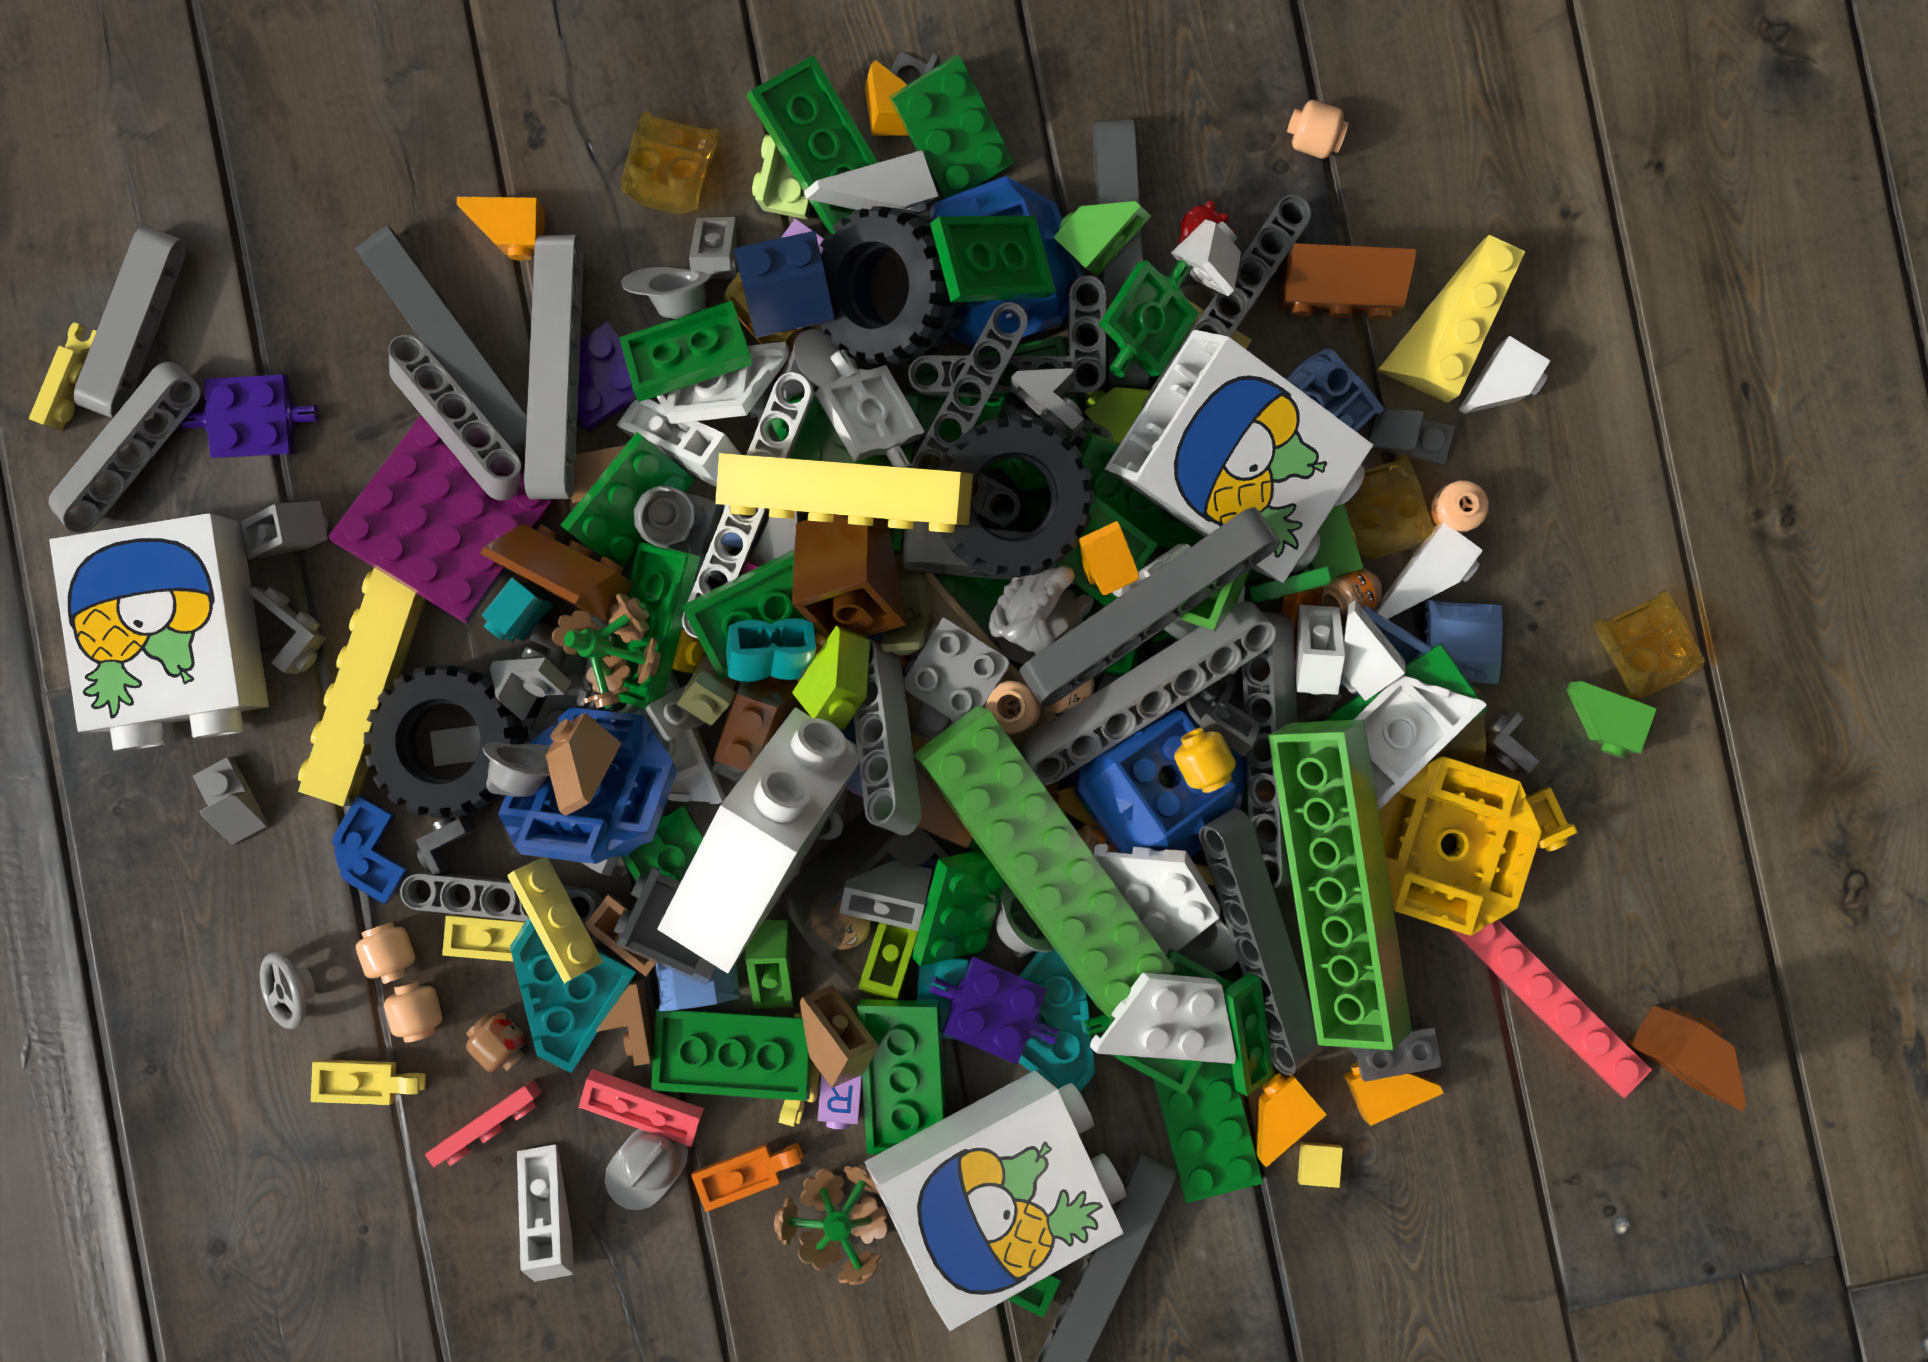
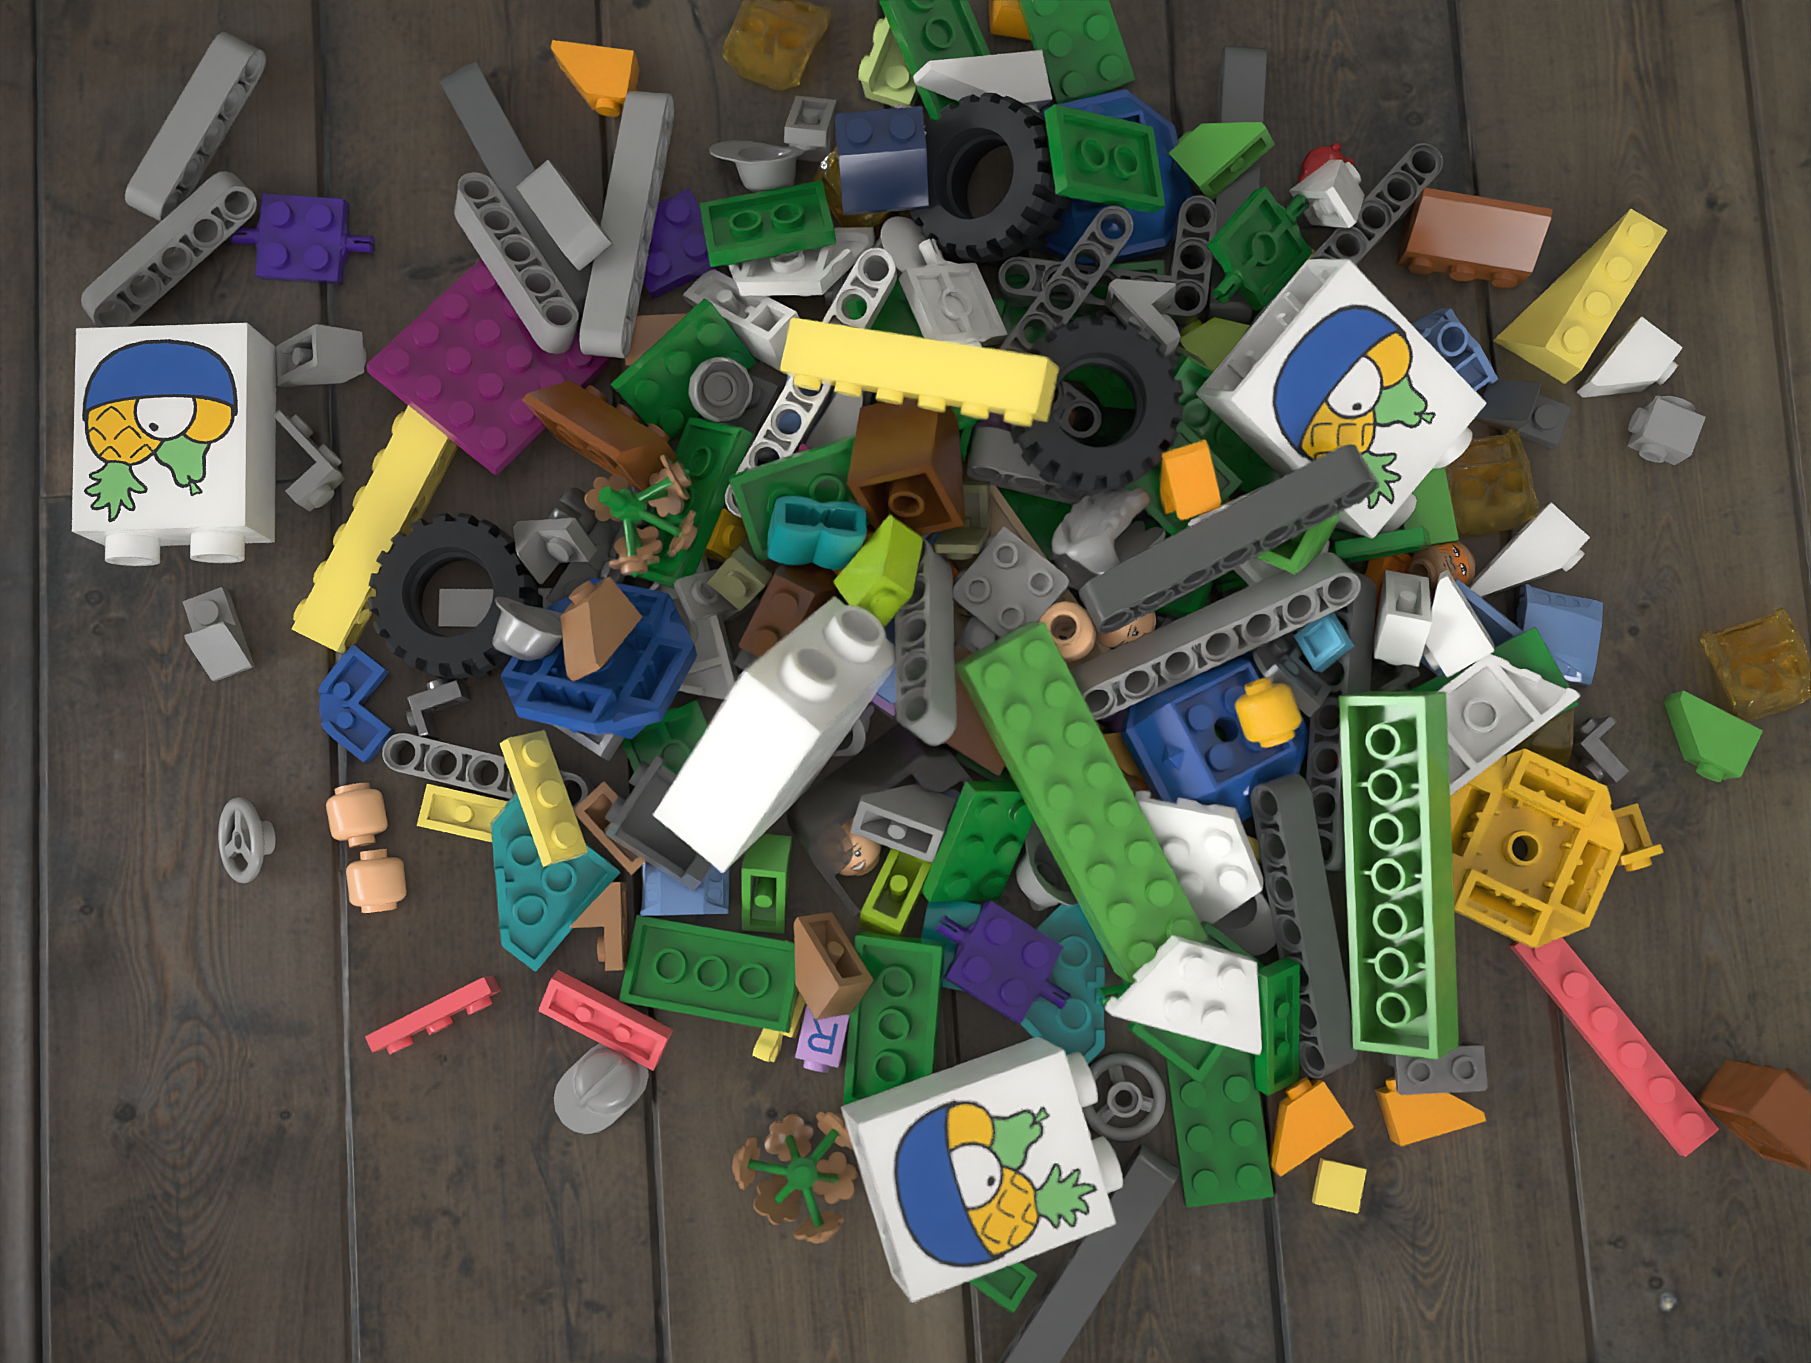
camera: 15 degrees right, 5 degrees down
(56, 398) = (106, 194): light yellow plate -> none
(361, 1082) = (308, 951): light yellow plate -> none
(493, 370) = (564, 215): none -> light grey beam
(496, 1042) = (459, 927): medium nougat head -> none
(516, 610) = (550, 469): teal brick -> none
(543, 1215) = (482, 1124): white slope -> none
(743, 1174) = (705, 1109): orange plate -> none
(1132, 1115) = (1154, 1105): none -> light grey piece
(1250, 683) = (1323, 641): none -> medium azure tile
(1317, 129) = (1459, 82): light nougat head -> none
(1473, 501) = (1570, 488): light nougat head -> none
(1542, 437) = (1665, 430): none -> light grey brick

